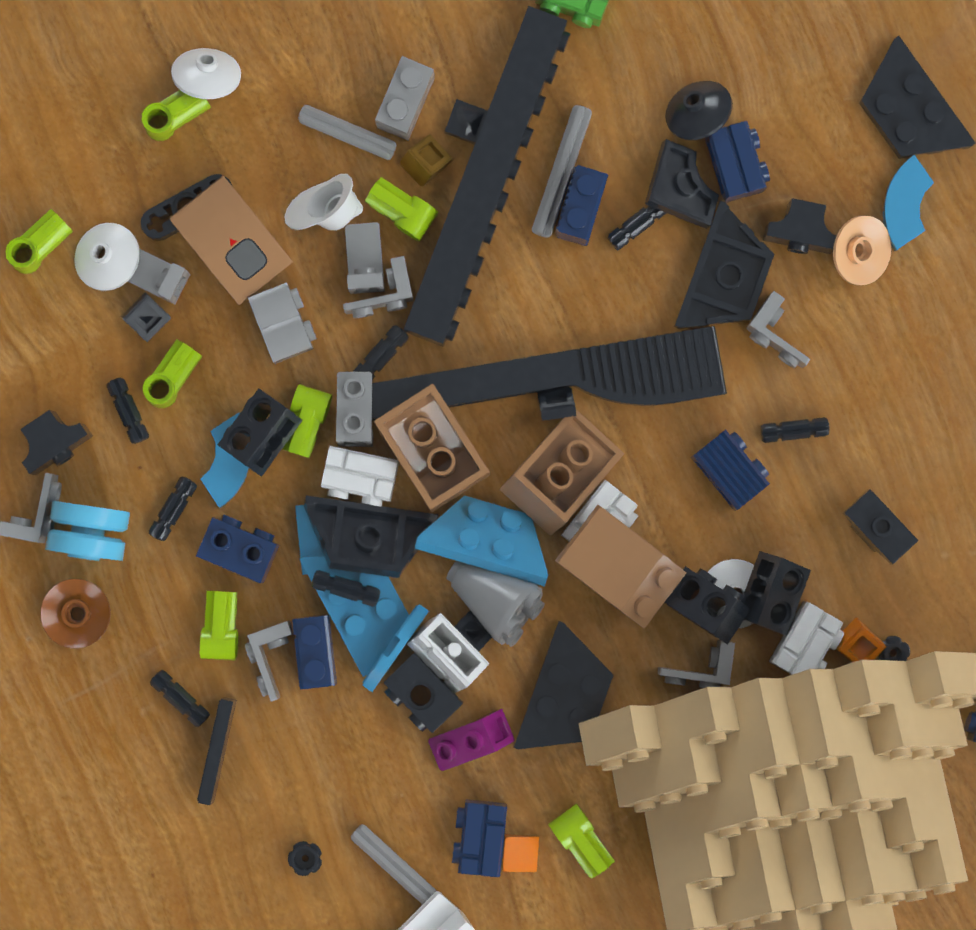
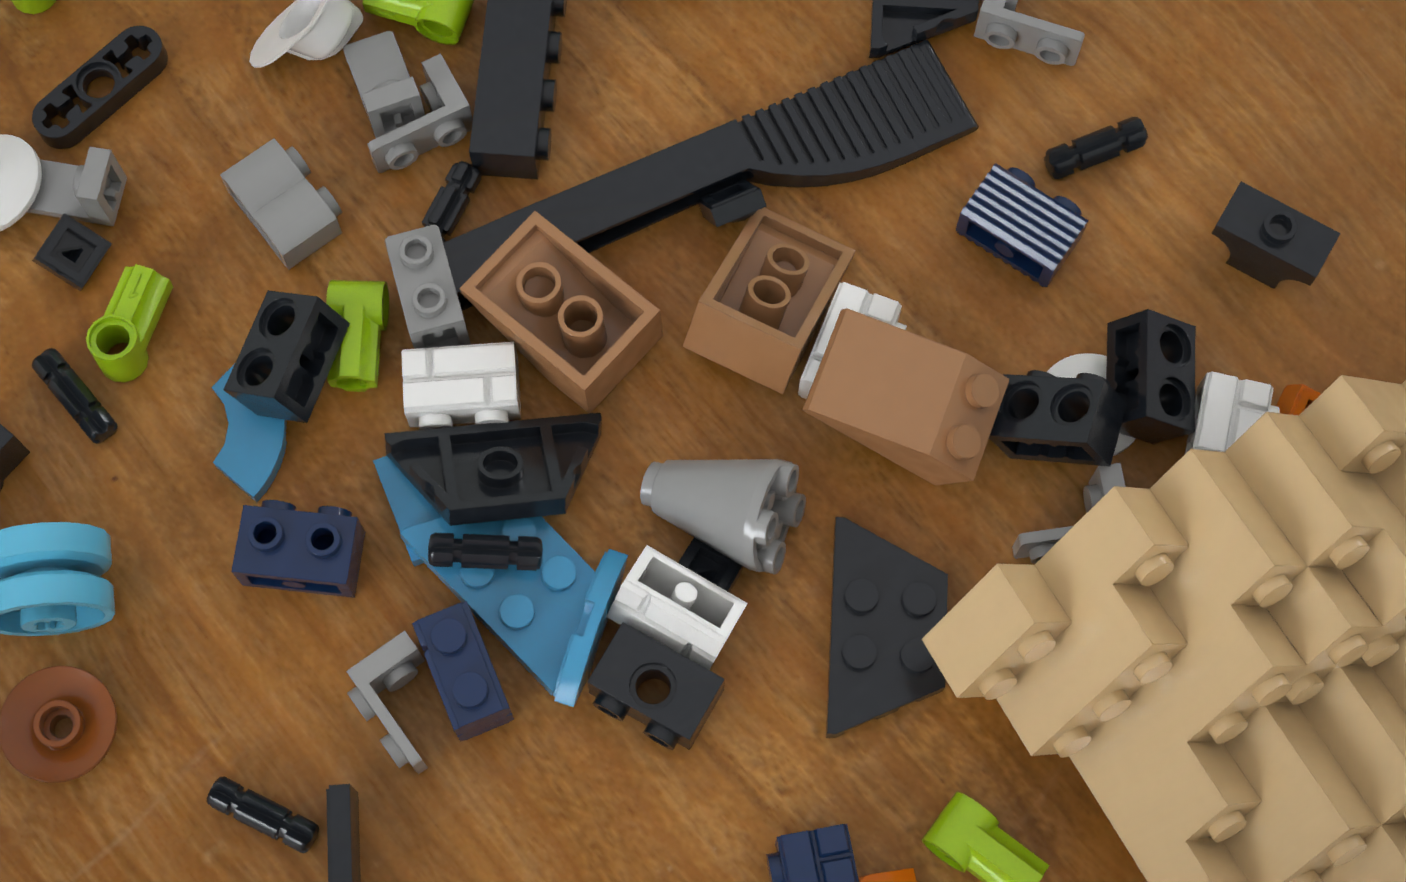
camera: 15 degrees left, 15 degrees down
(172, 508) = (180, 521): black axle -> none
(220, 634) = (302, 690): lime piece -> none
(230, 240) = (175, 106): medium nougat slope -> none
(471, 740) = (754, 741): magenta bracket -> none
(488, 539) = (687, 420): dark azure wing -> none

